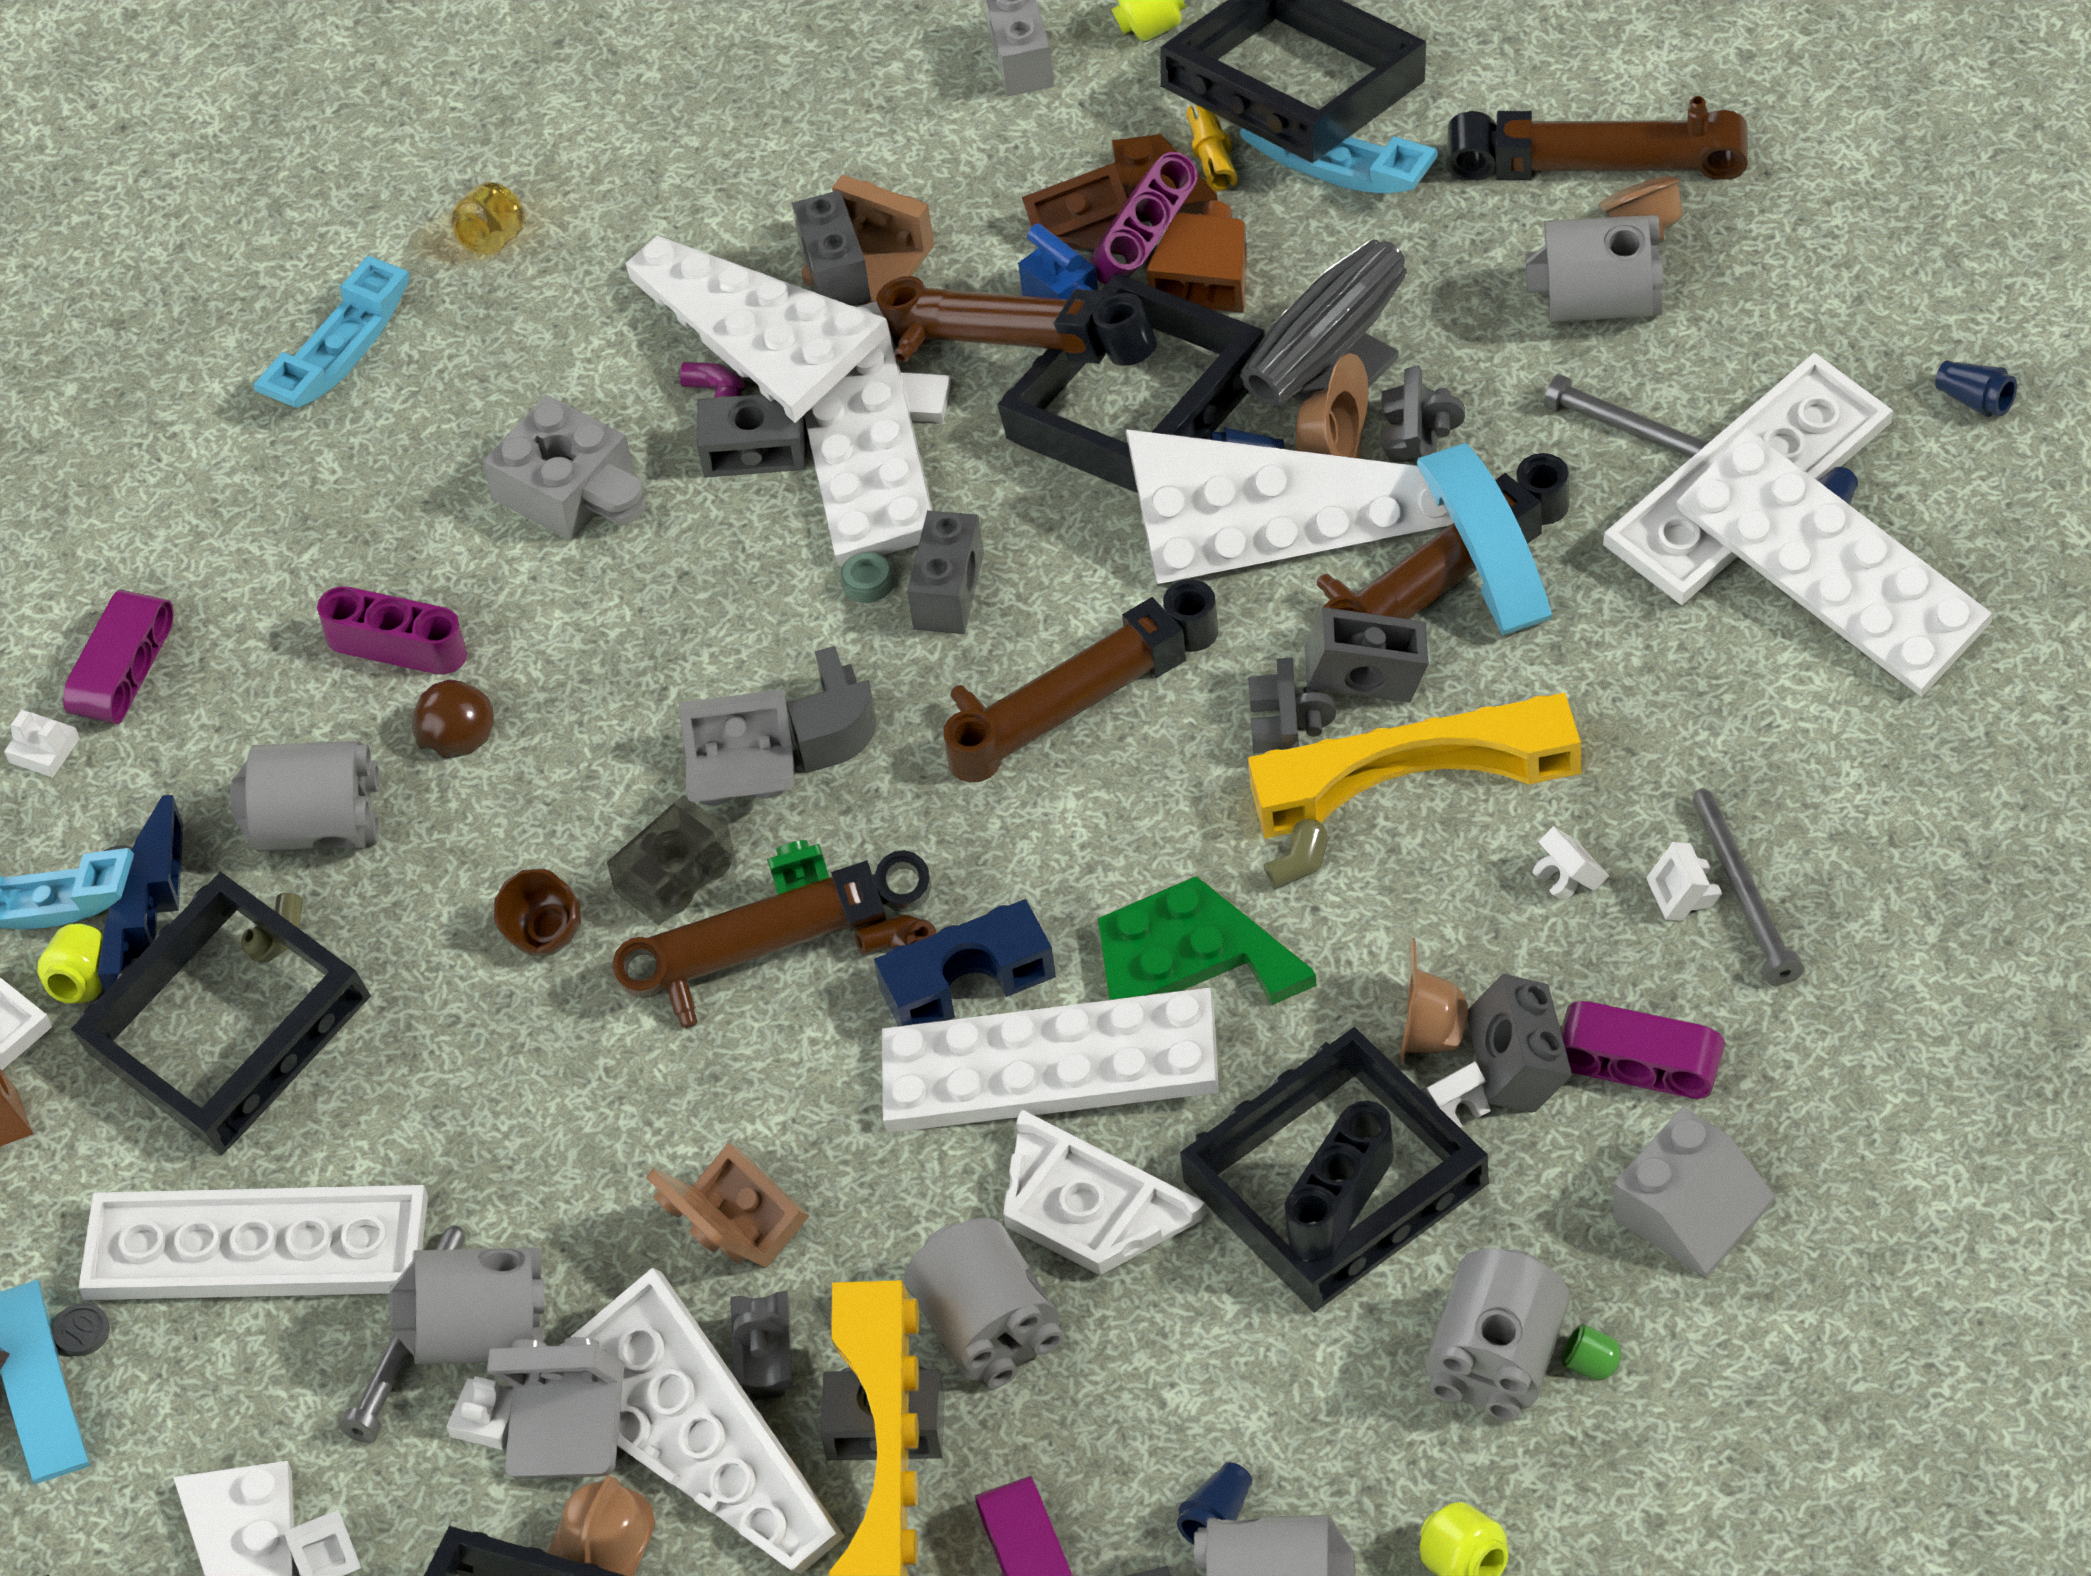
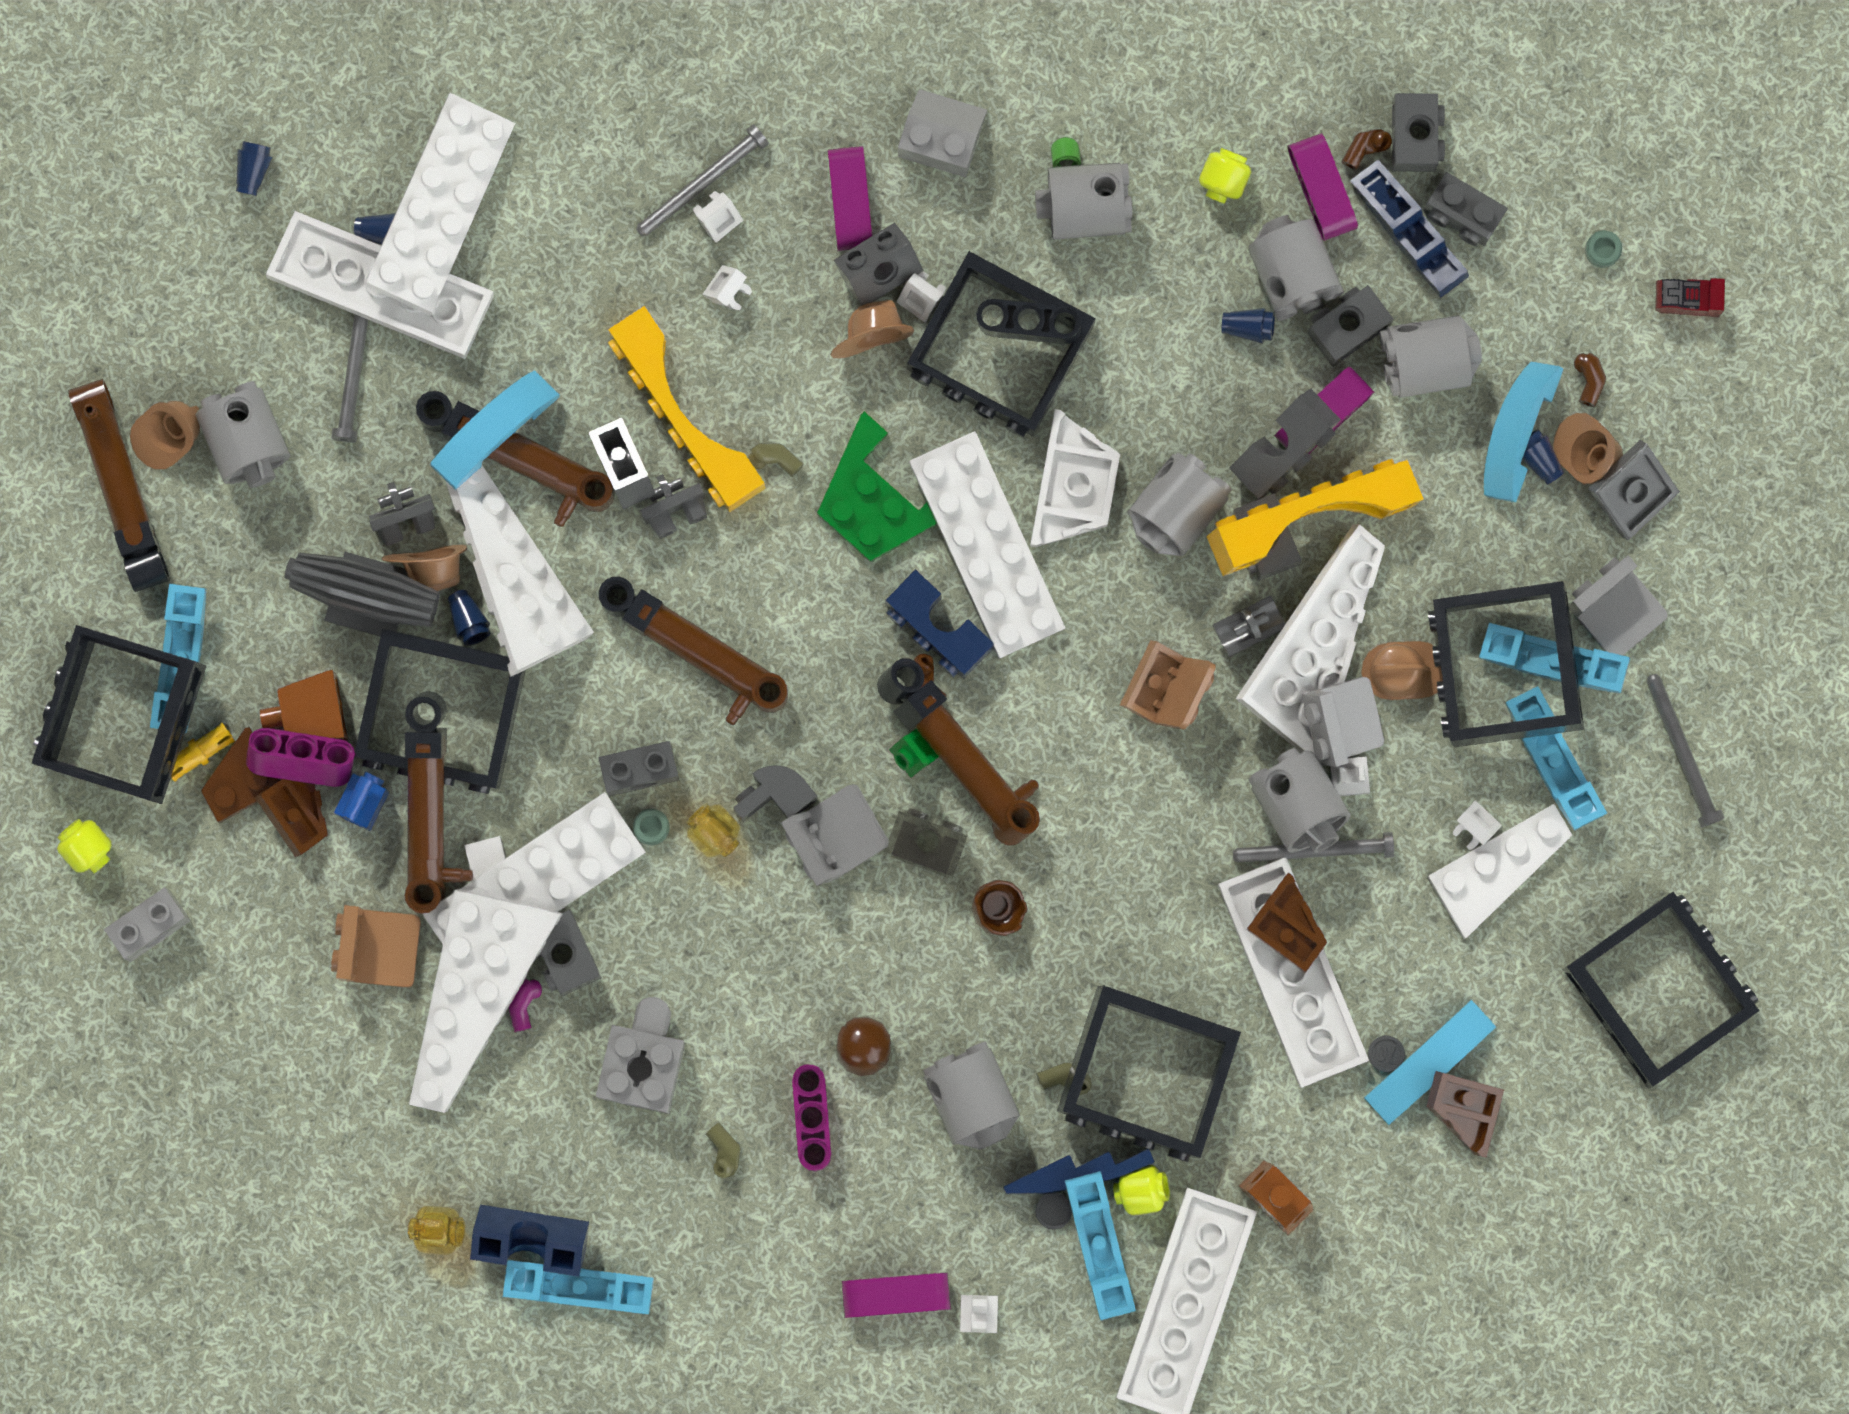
camera: 120 degrees left, 30 degrees up
(311, 1238) = (1289, 926): none -> reddish brown wing
(408, 540) = (728, 1151): none -> olive arm
(444, 273) = (505, 1231): none -> dark blue arch
(820, 625) = (713, 830): none -> clear yellow head
(831, 248) = (398, 961): dark grey brick -> none
(997, 1462) = (1307, 424): none -> dark grey arch

